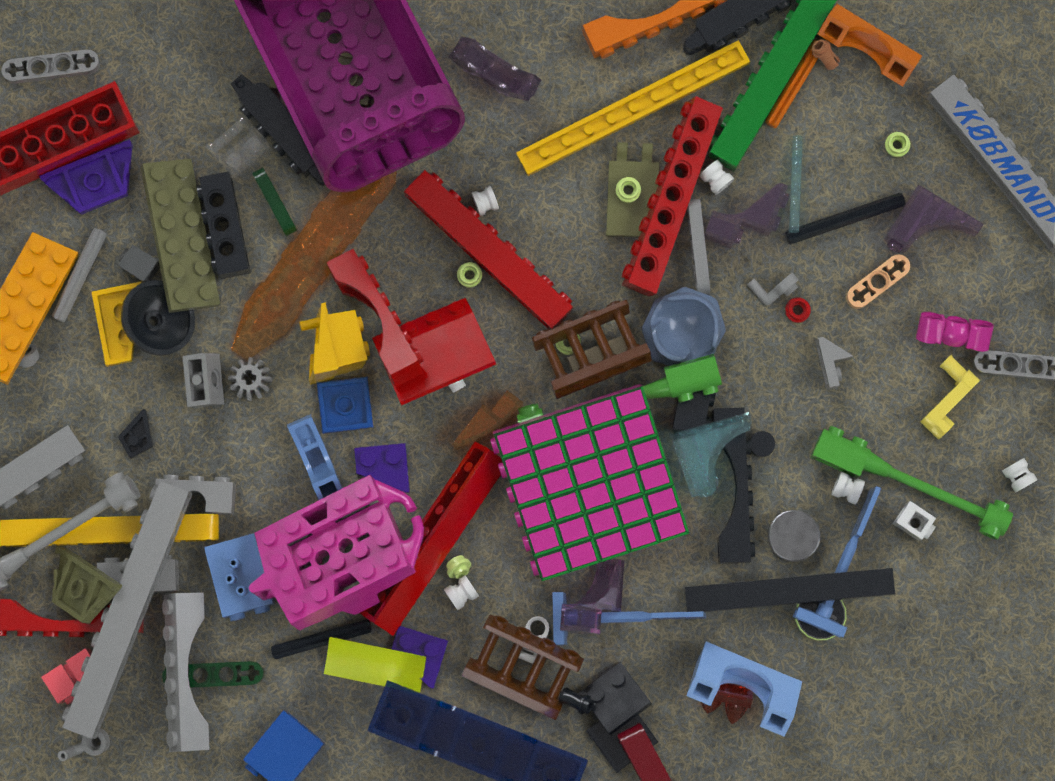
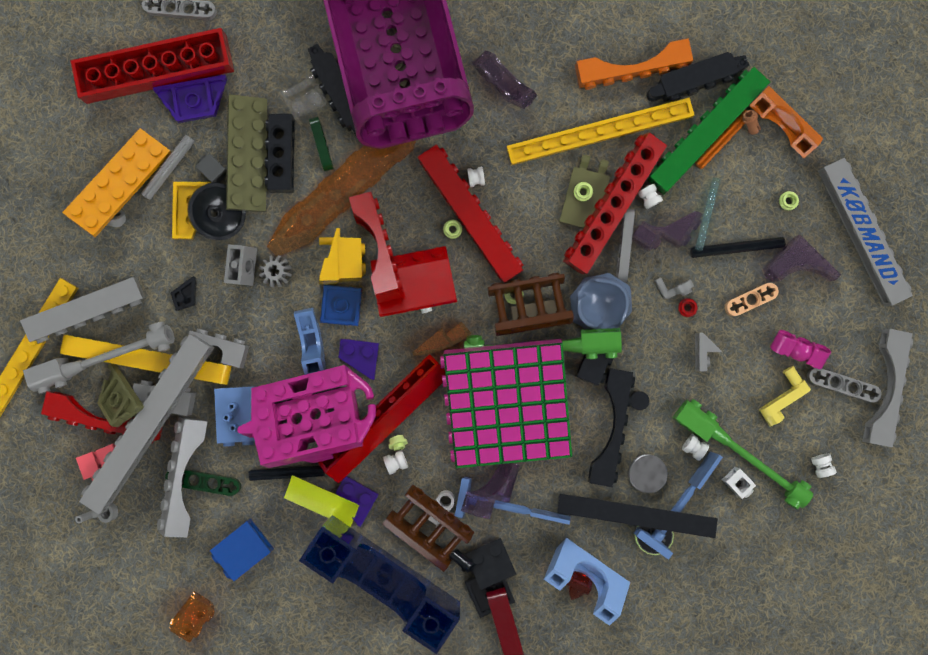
camera: 10 degrees right, 5 degrees up
(700, 448) = (594, 397): clear light blue arch -> none

